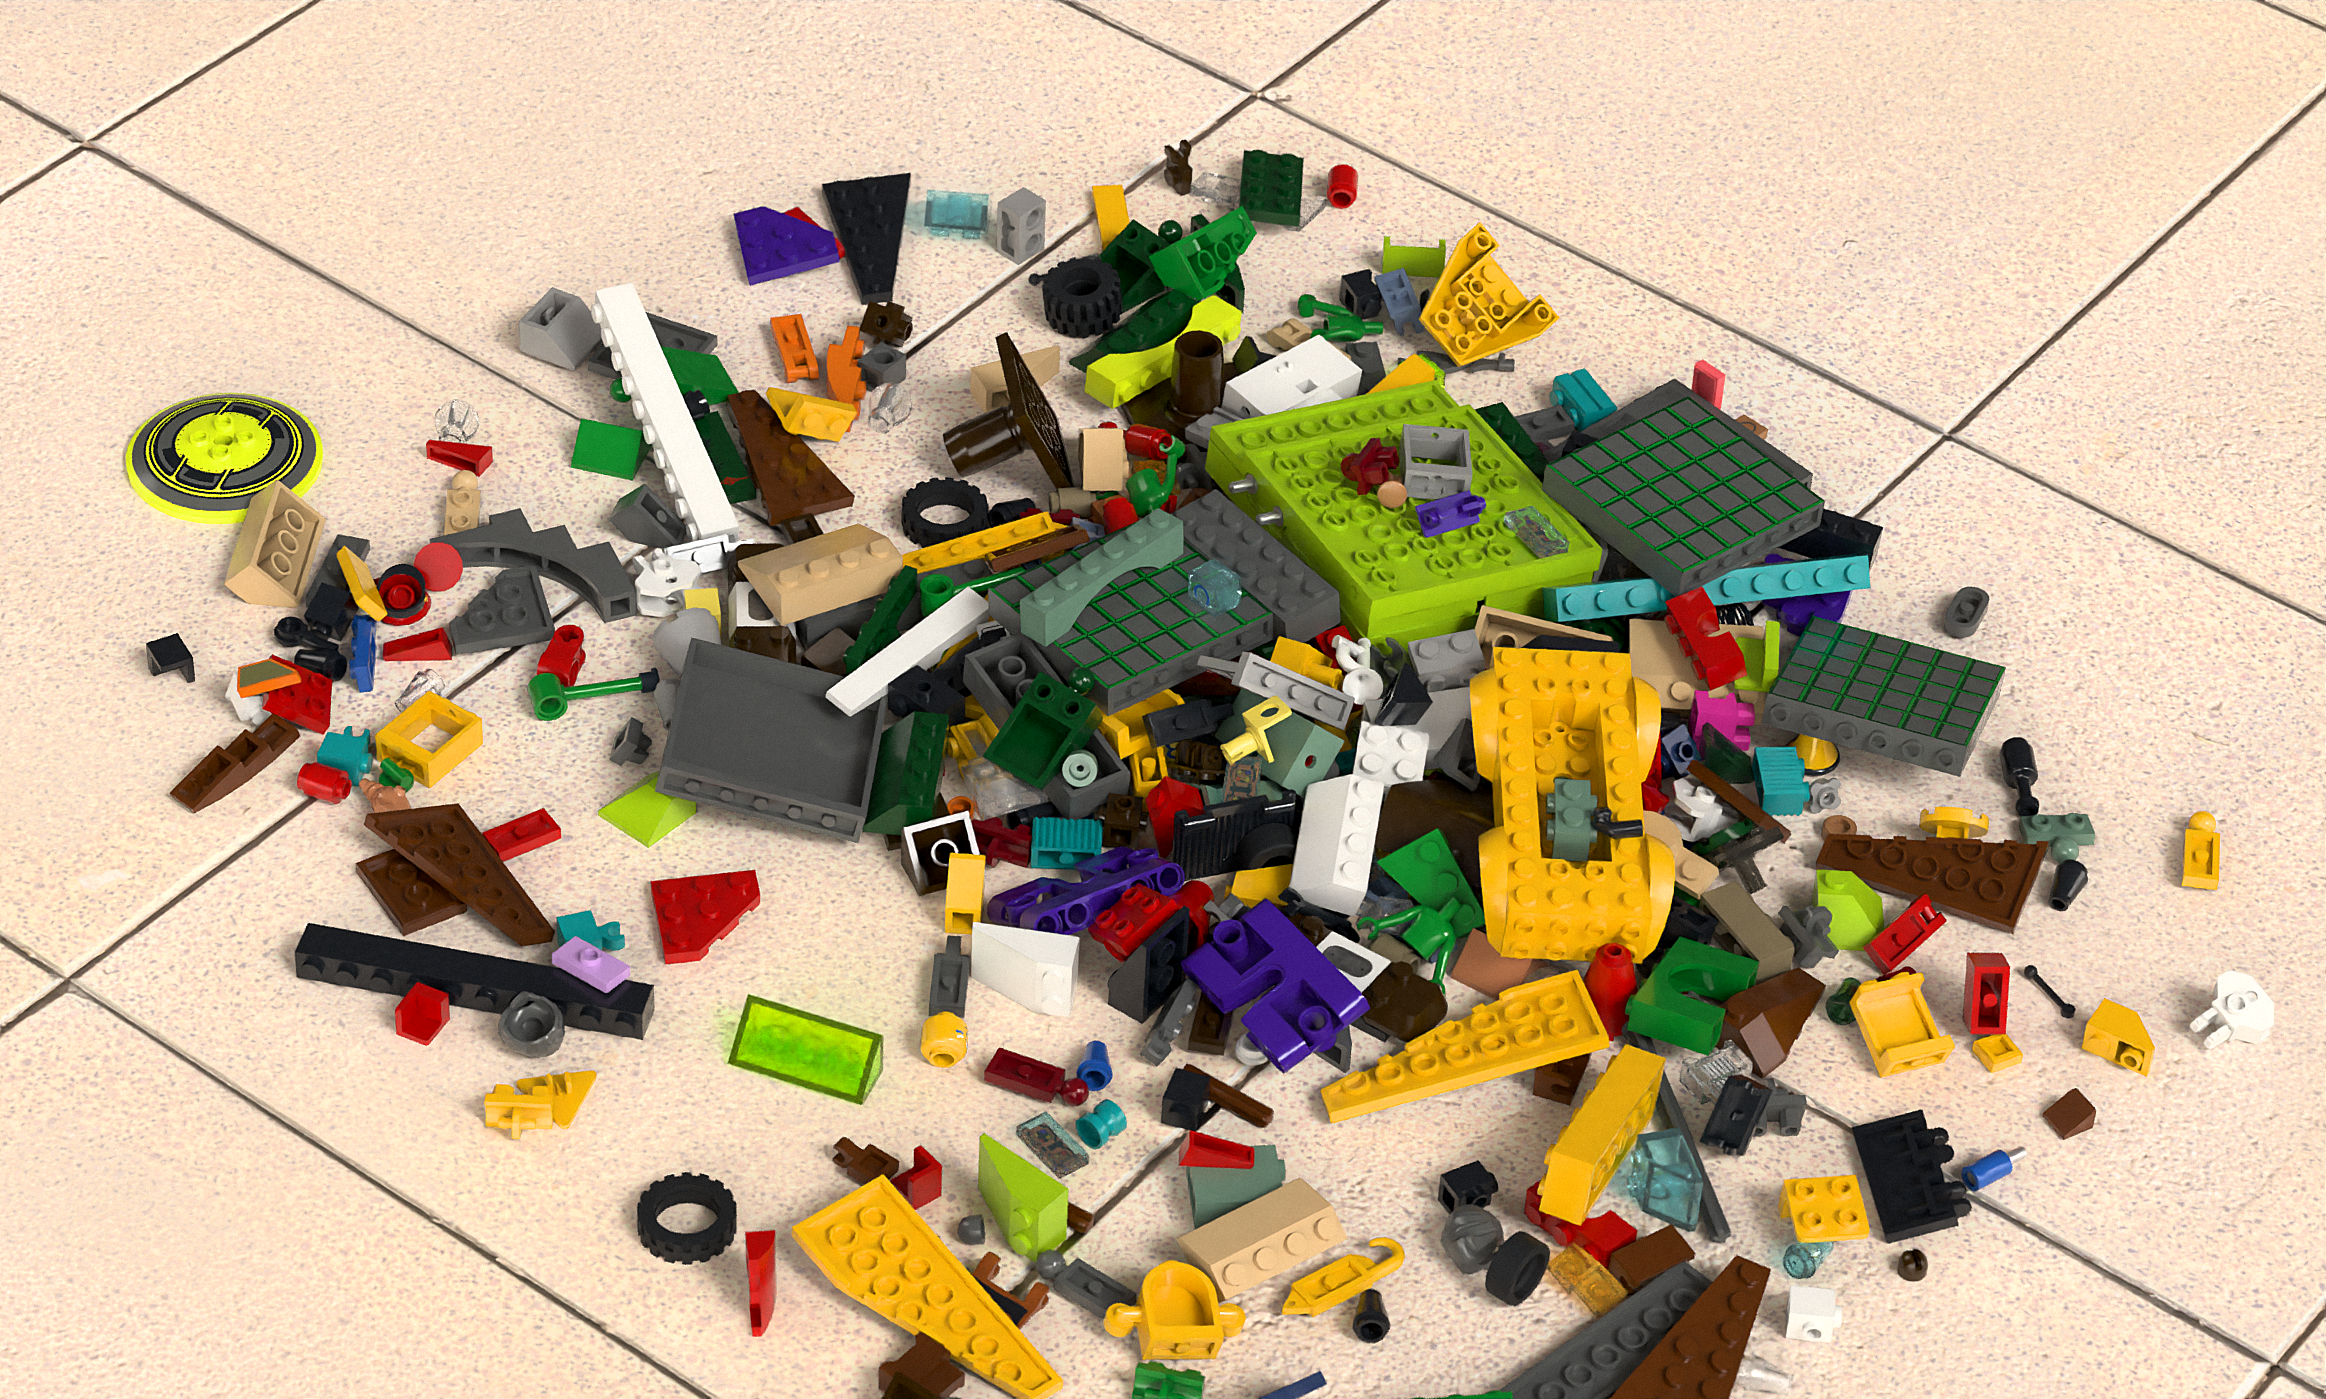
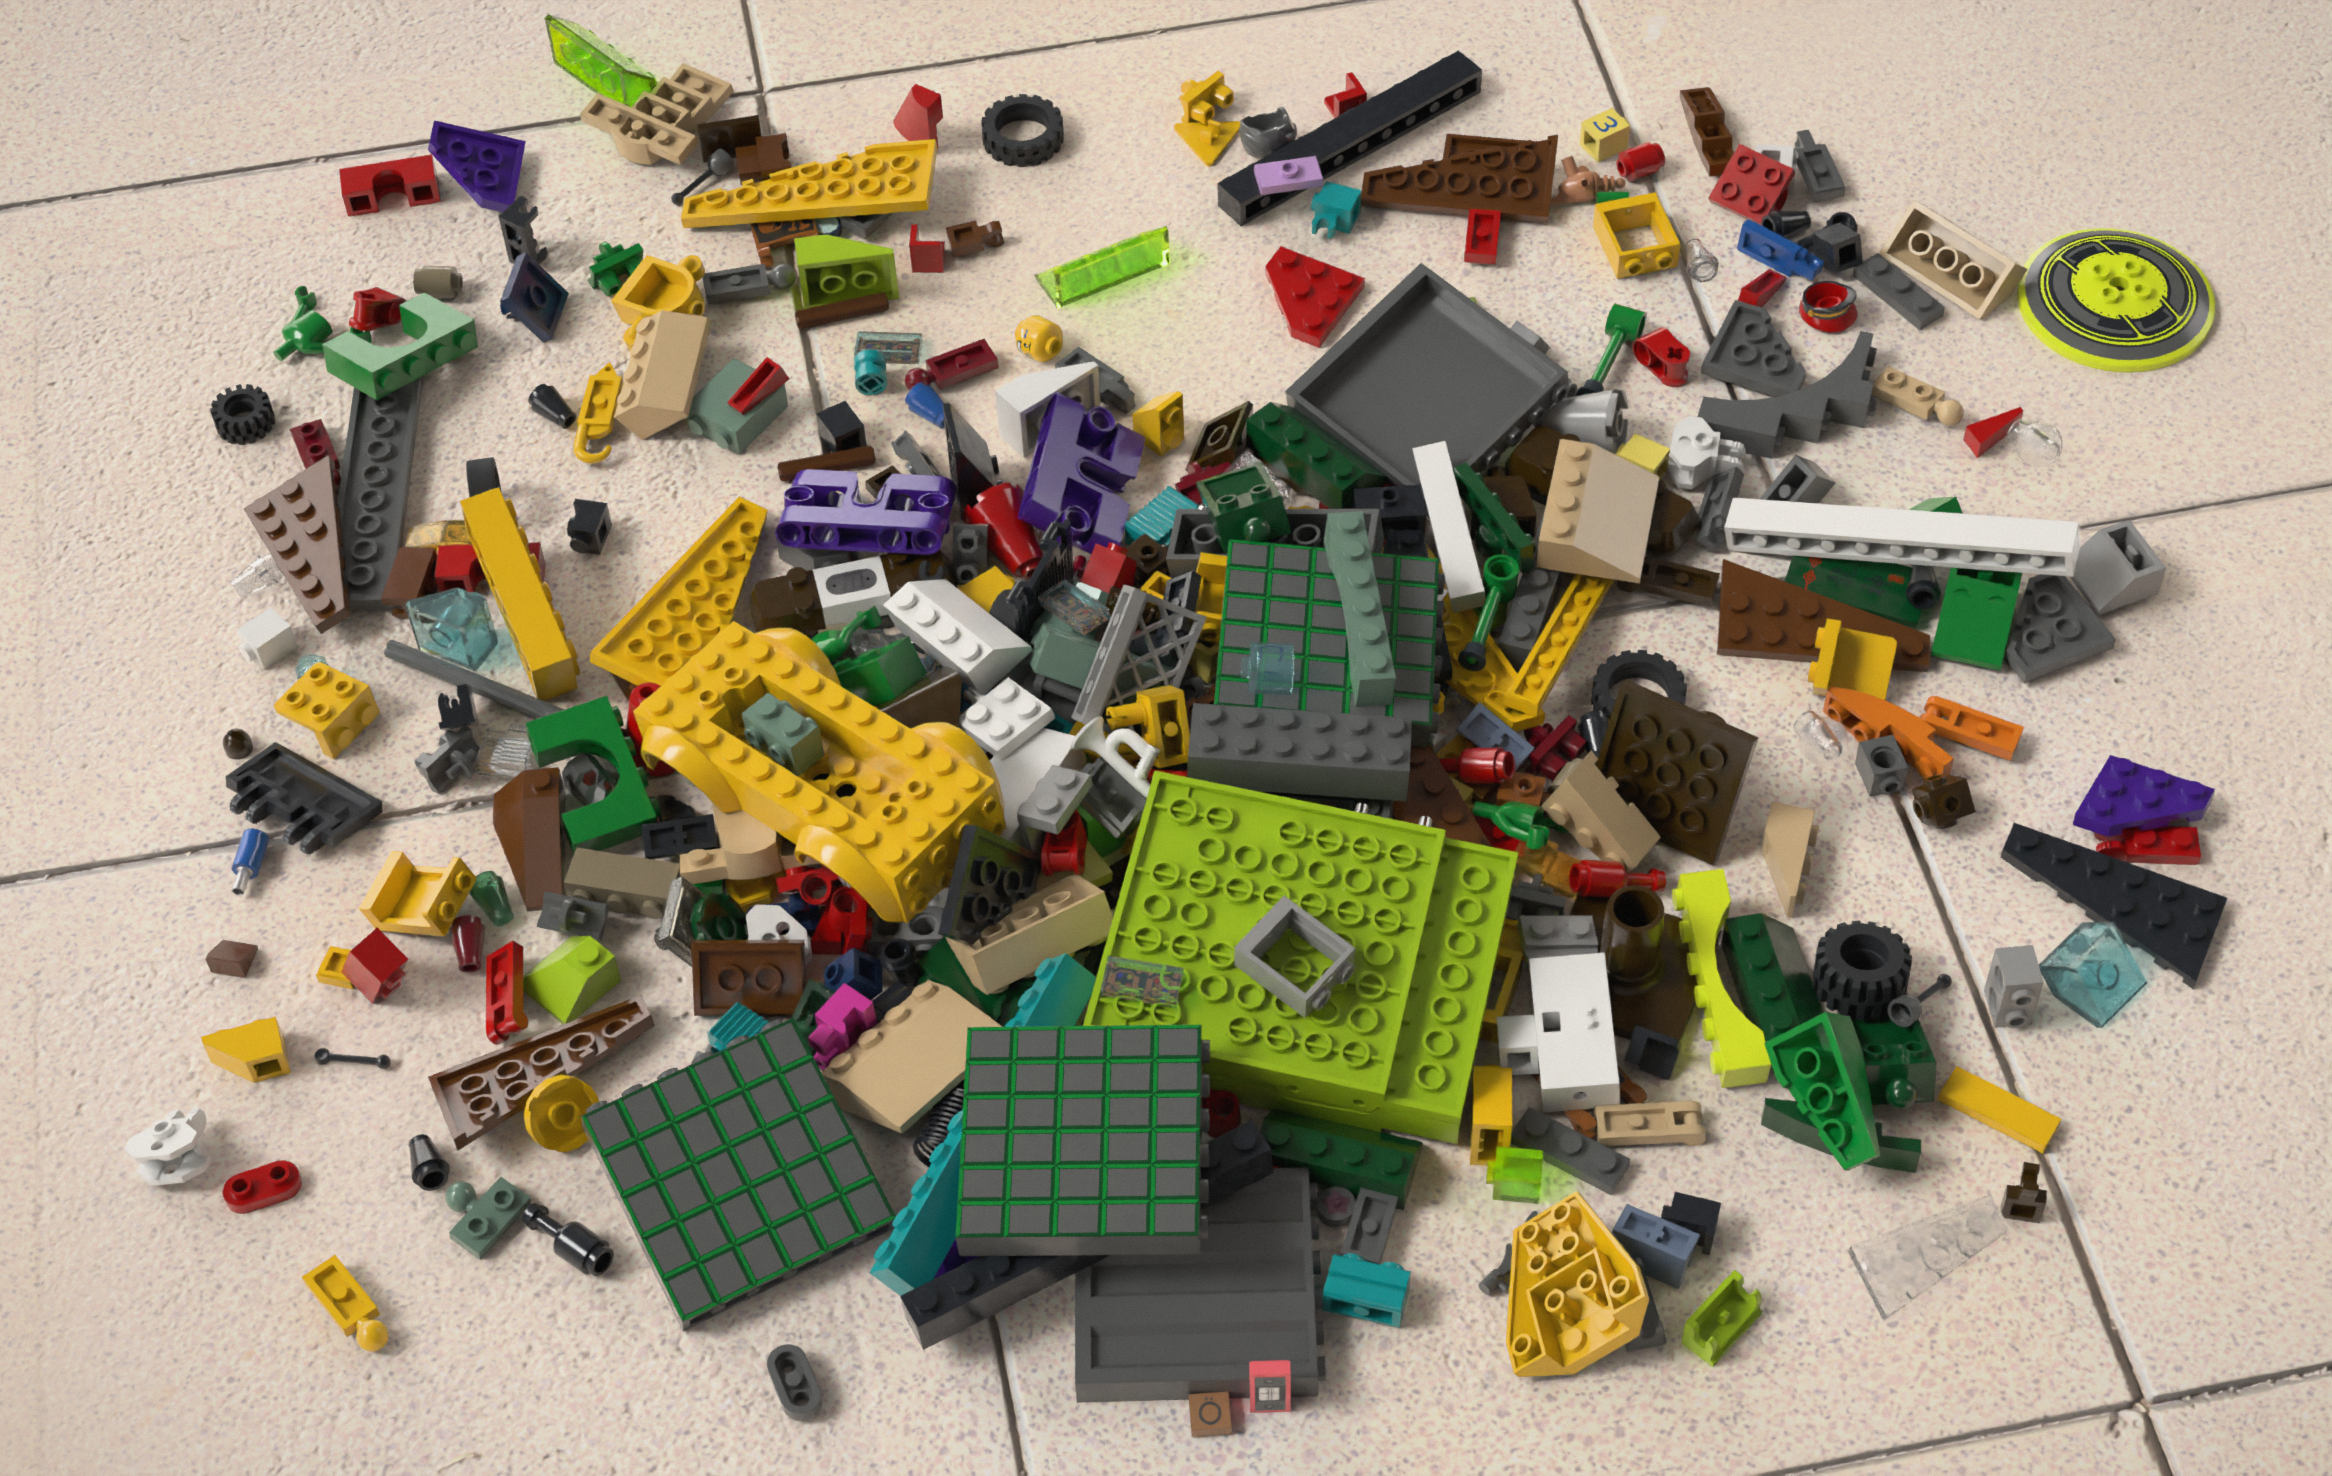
camera: 135 degrees right, 10 degrees up
(170, 654) = (1858, 144): black panel -> none
(213, 682) = (1818, 168): none -> dark grey hinge
(264, 677) = (1765, 144): tile -> none
(309, 820) = (1604, 135): none -> light yellow brick
(347, 753) = (1663, 178): teal brick -> none
(361, 584) = (1848, 267): yellow tile -> none
(439, 565) = (1850, 332): piece -> none
(1036, 547) = (1485, 657): reddish brown tile -> none
(1076, 774) = (1189, 512): tile -> none
(1132, 920) = (1002, 449): red plate -> none
(1254, 737) = (1093, 613): light yellow bracket -> none
(1271, 187) = (1928, 1258): dark green plate -> none
(1339, 324) = (1659, 1168): green piece -> none
(1342, 186) = (1893, 1341): red brick -> none
(1370, 465) = (1329, 888): dark red hips -> none
(1393, 492) = (1283, 887): medium nougat piece -> none
(1403, 700) = (1035, 737): black slope -> none
(1449, 513) = (1211, 919): dark purple hinge -> none
(1471, 1238) = (543, 497): dark grey hair -> none
(1615, 829) = (728, 729): black arm -> none
(1714, 658) = (887, 1030): red arch -> none
(1760, 659) = (857, 1078): lime panel -> none
(1838, 825) = (662, 1054): medium nougat tile -> none
(2189, 963) = (262, 1187): none -> red plate

